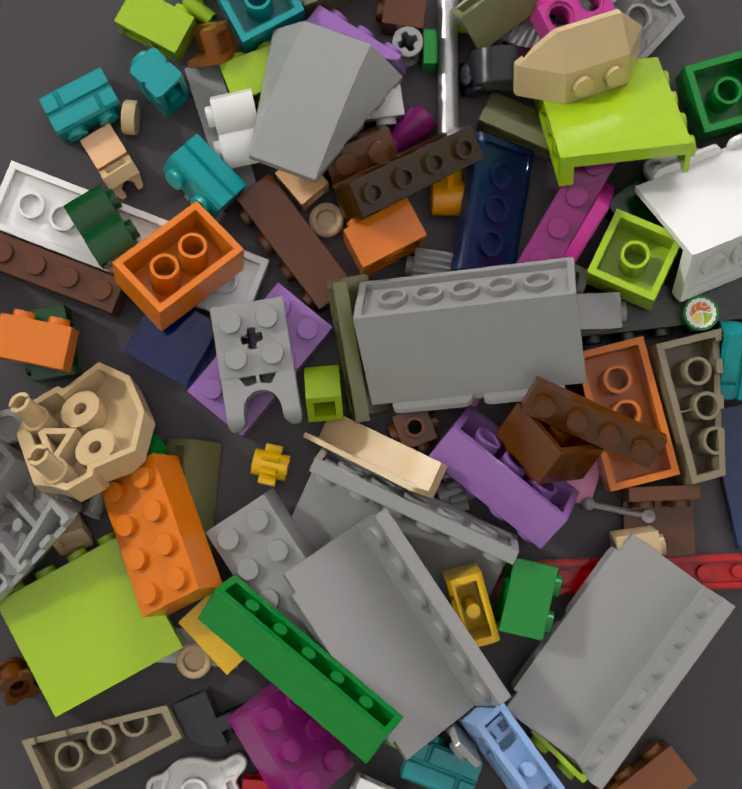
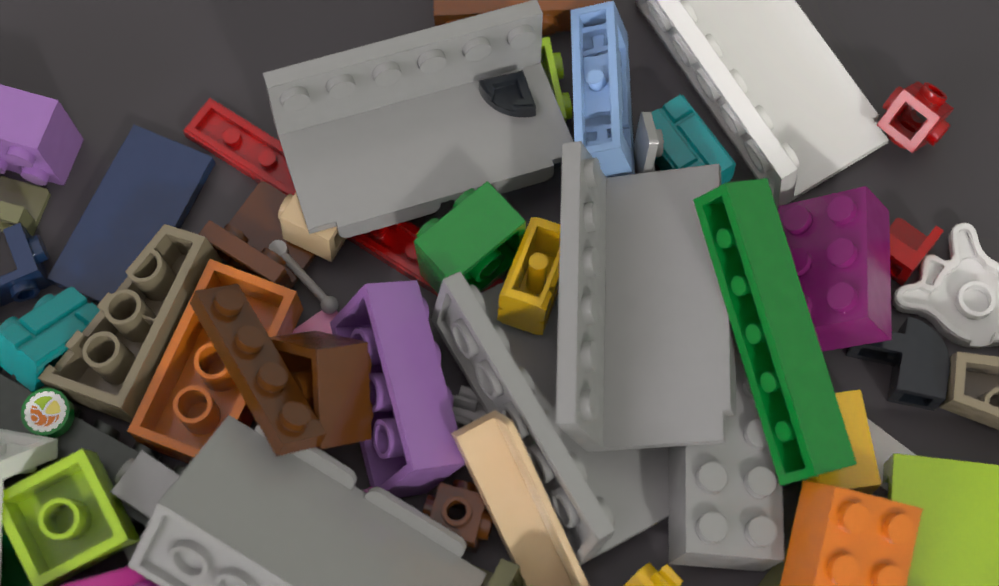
camera: 135 degrees left, 15 degrees down
(193, 661) = (889, 435): tan tile -> none
(577, 719) = (509, 94): none -> black tile

